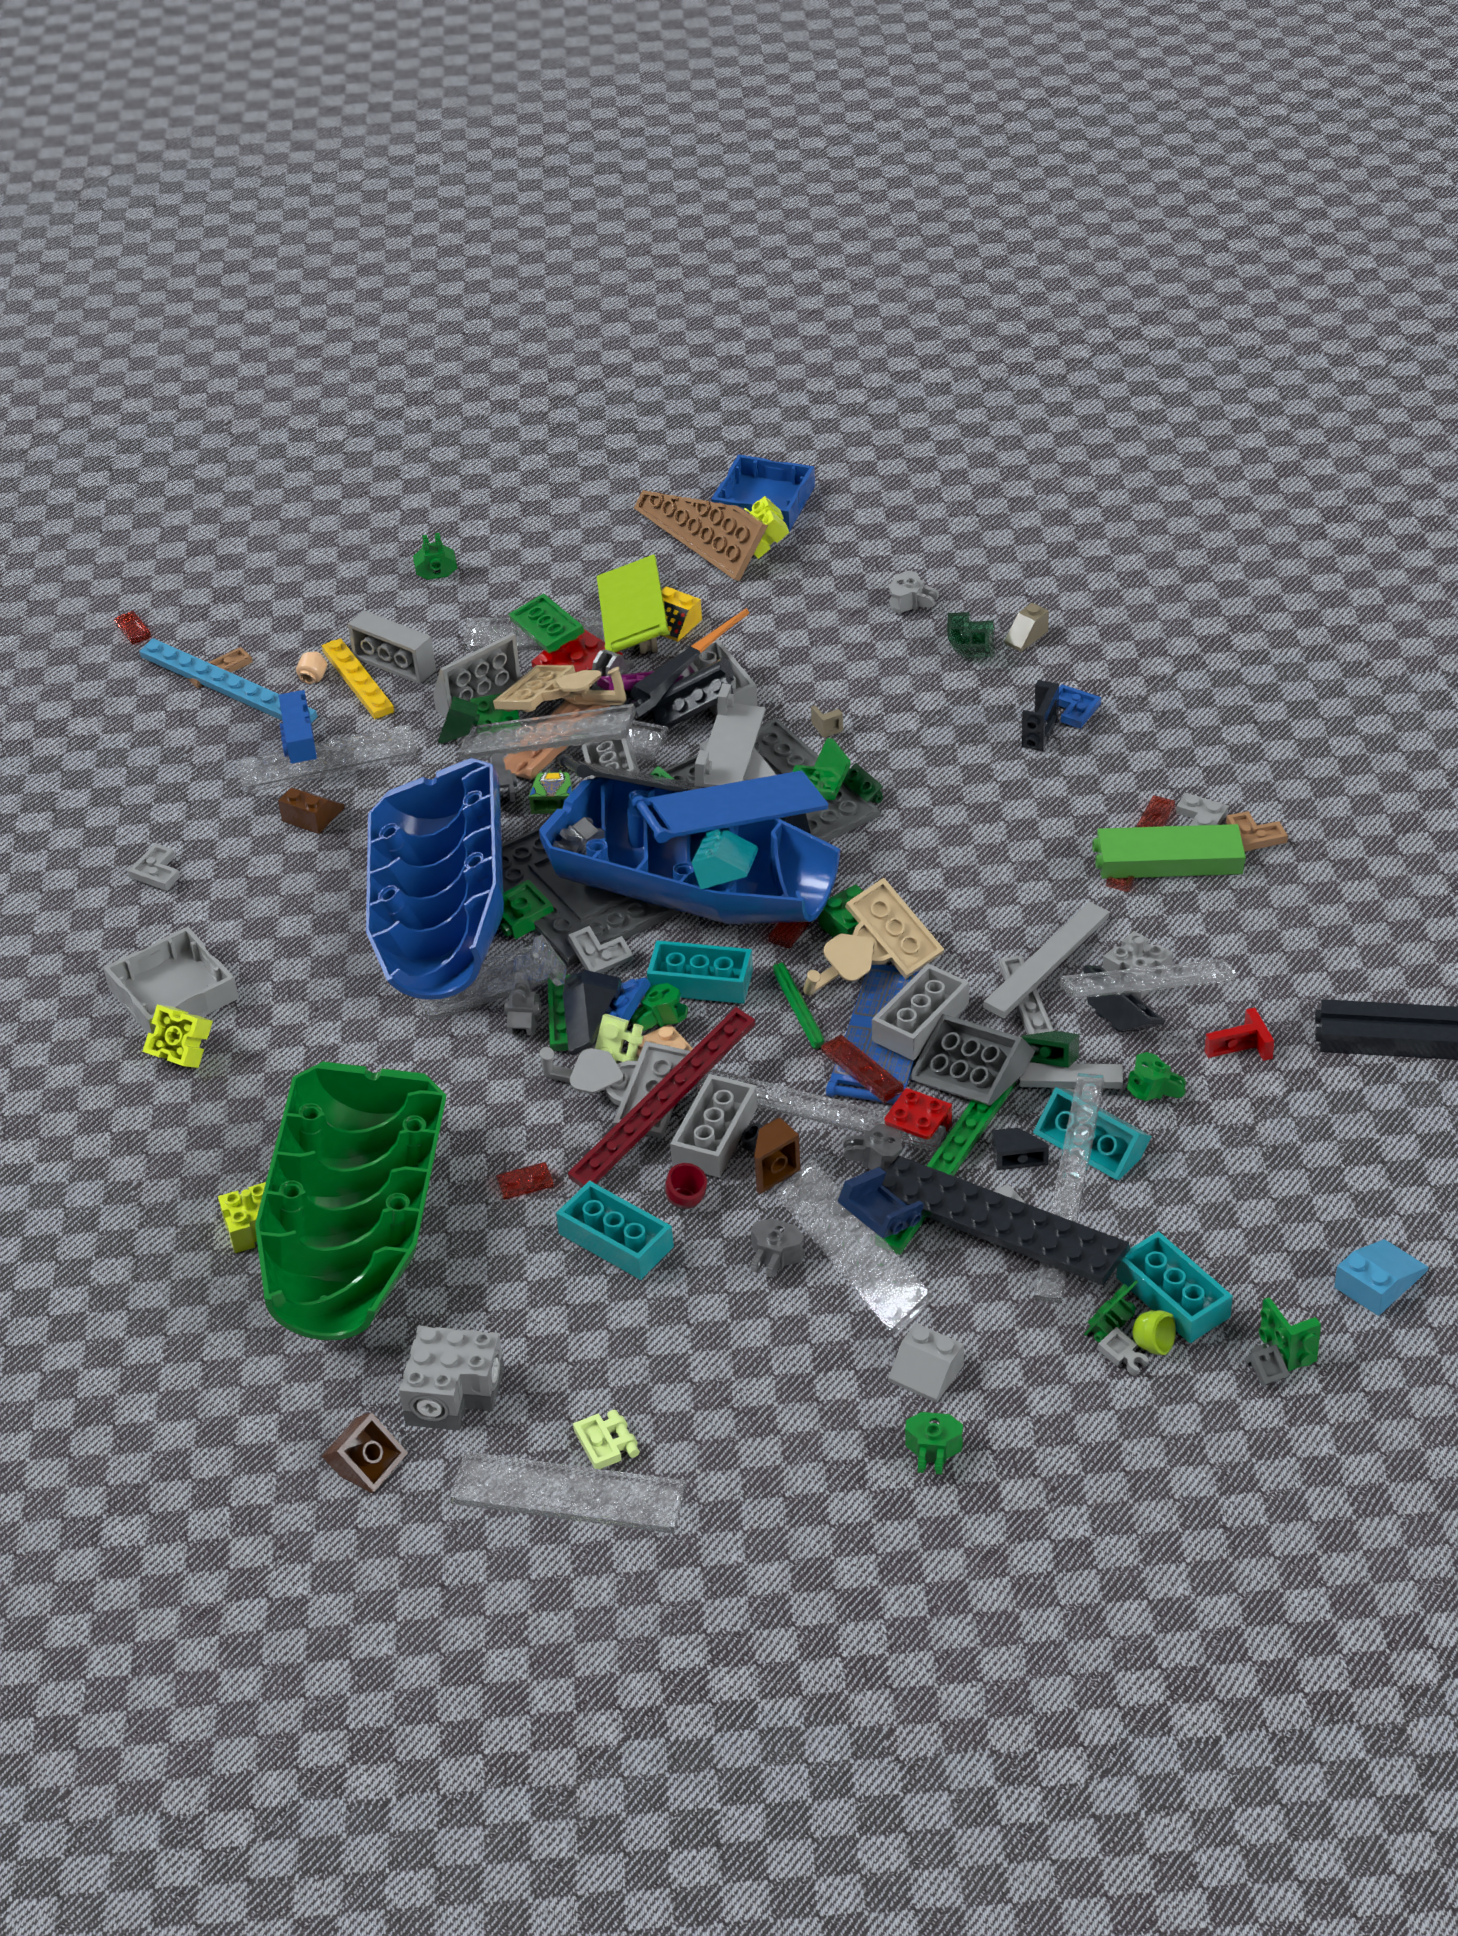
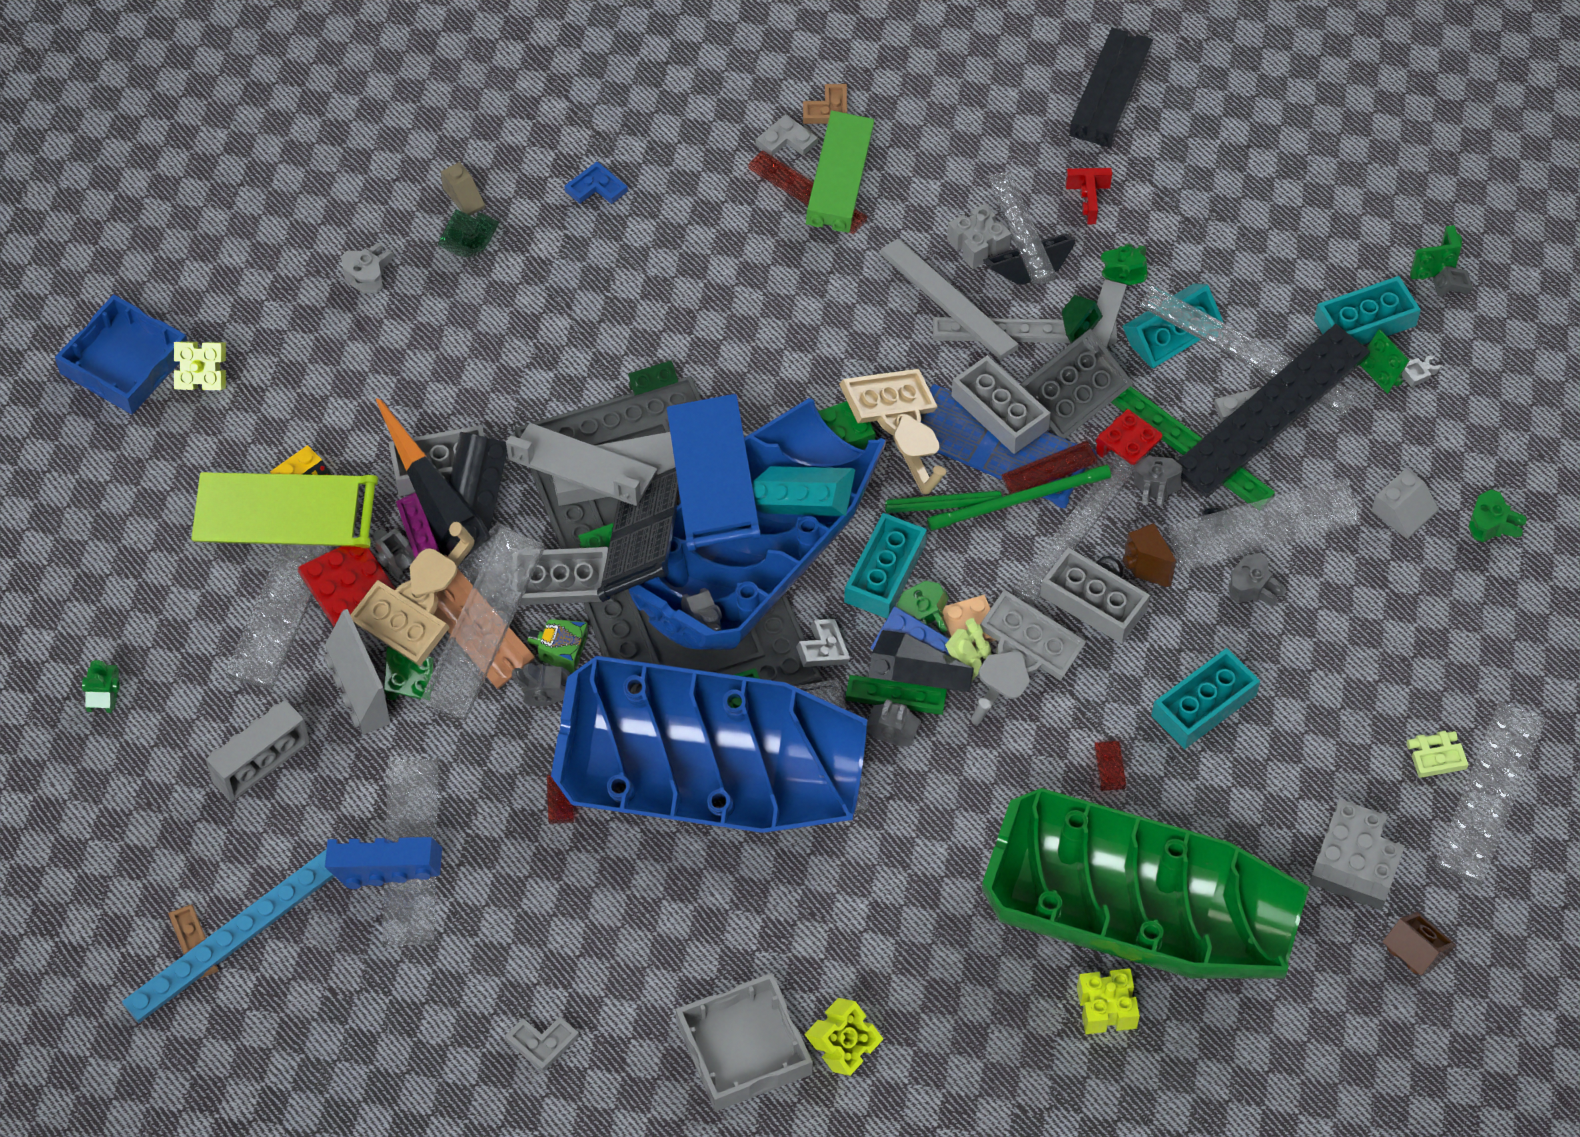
camera: 80 degrees left, 15 degrees up
(132, 627) = (71, 1028): clear red tile -> none
(308, 810) = (499, 875): reddish brown slope -> none
(311, 667) = (246, 841): light nougat head -> none
(357, 678) = (276, 801): yellow plate -> none
(459, 720) = (417, 708): dark green slope -> none
(539, 964) = (847, 691): clear tile -> none
(546, 623) = (291, 591): green plate -> none
(662, 1098) = (1058, 626): dark red plate -> none
(685, 1185) = (1166, 633): dark red hat -> none
(713, 530) = (189, 407): medium nougat wing -> none
(827, 723) = (538, 389): dark tan panel -> none
(828, 770) = (639, 398): green bracket -> none
(859, 1095) = (948, 518): none -> green piece
(876, 1205) = (1242, 488): dark blue panel -> none
(1018, 1149) = (1177, 382): black slope -> none
(1034, 732) = (598, 206): black panel -> none
(1155, 1331) = (1411, 341): lime hat -> none
(1378, 1275) = (1376, 184): dark azure slope -> none

